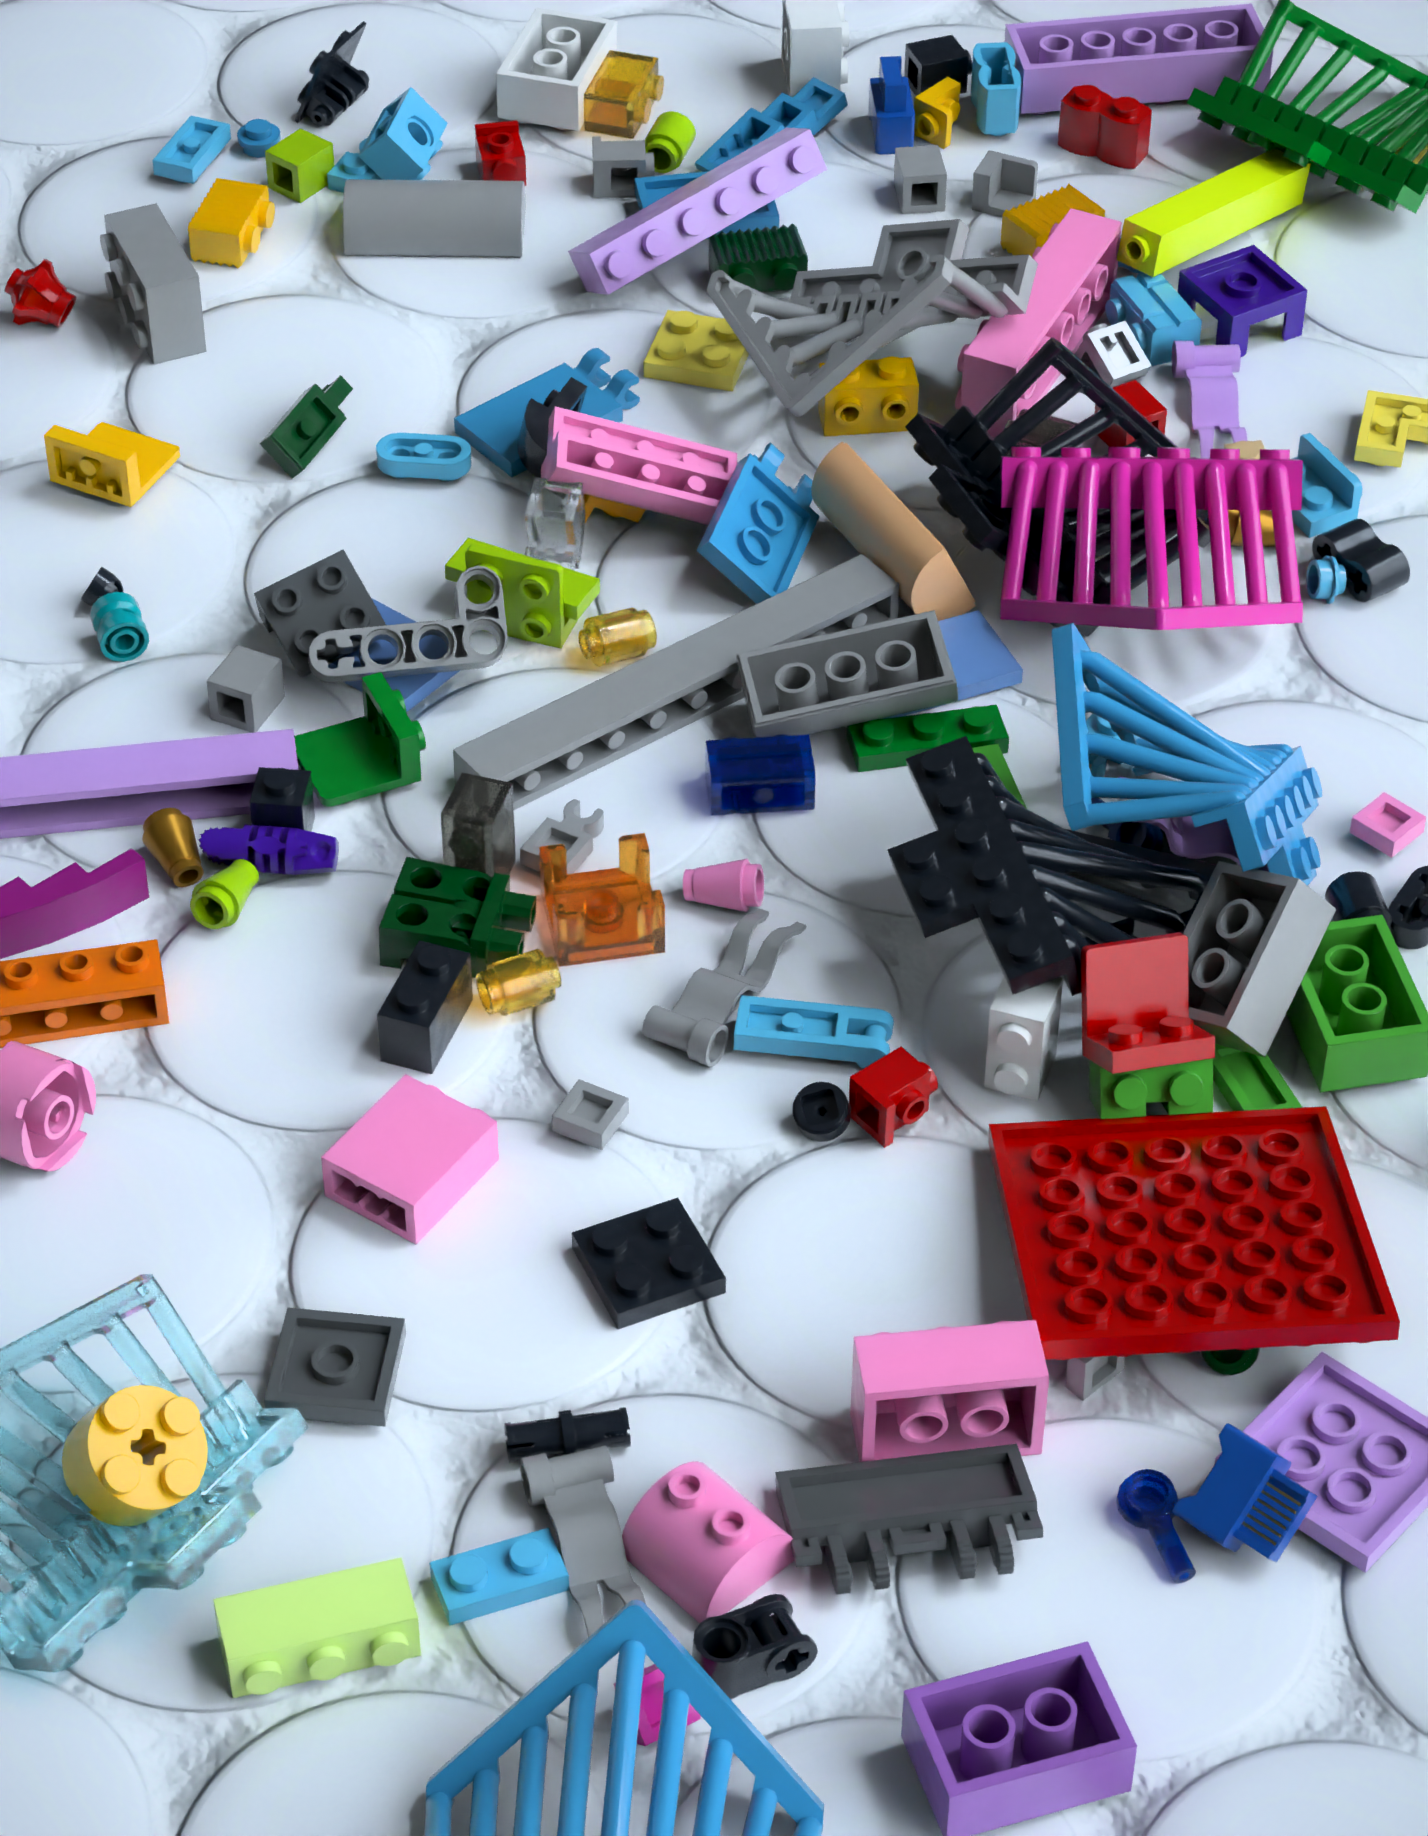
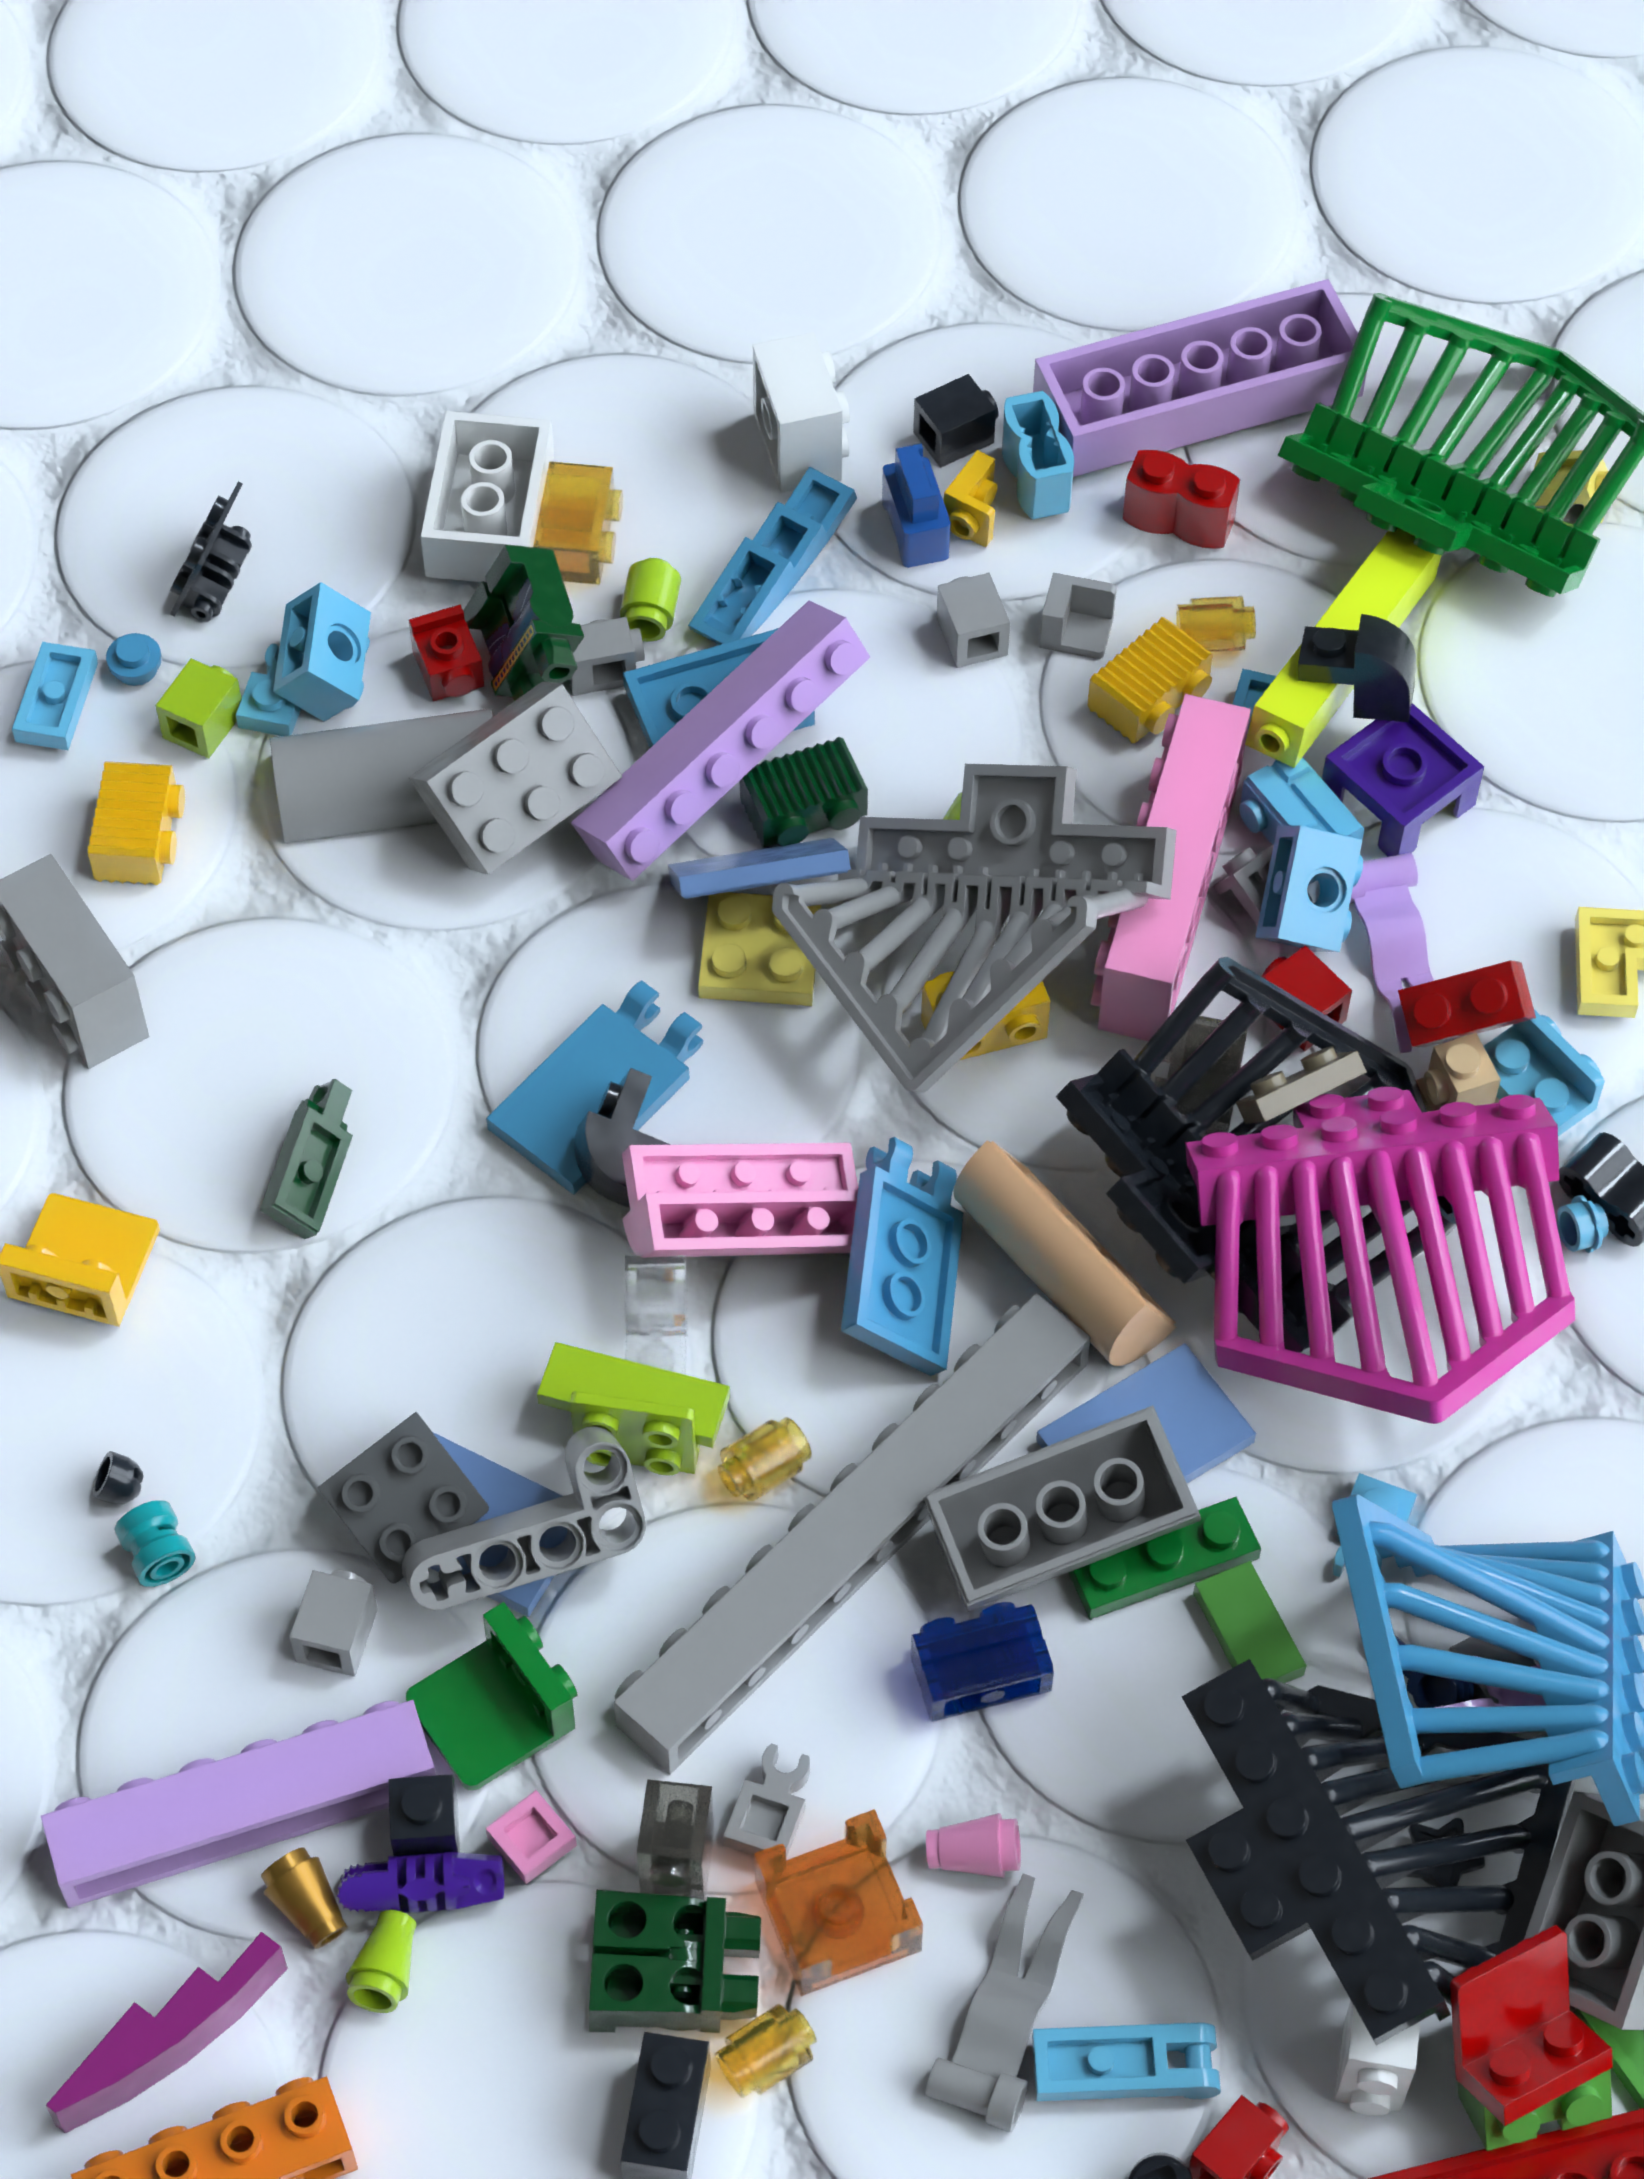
camera: 10 degrees left, 15 degrees up
(366, 834) = (531, 1837): none -> bright pink plate
(423, 456) = (463, 1187): medium azure plate -> none
(529, 213) = (515, 777): none -> light grey brick
(563, 134) = (525, 621): none -> dark green hips
(688, 289) = (759, 868): none -> medium blue tile
(1117, 197) = (1217, 622): none -> clear yellow brick
(1121, 432) = (1278, 1094): none -> plate
(1159, 321) = (1286, 910): none -> medium azure brick
(1229, 202) = (1373, 659): none -> black brick
(1265, 412) = (1466, 1004): none -> red brick

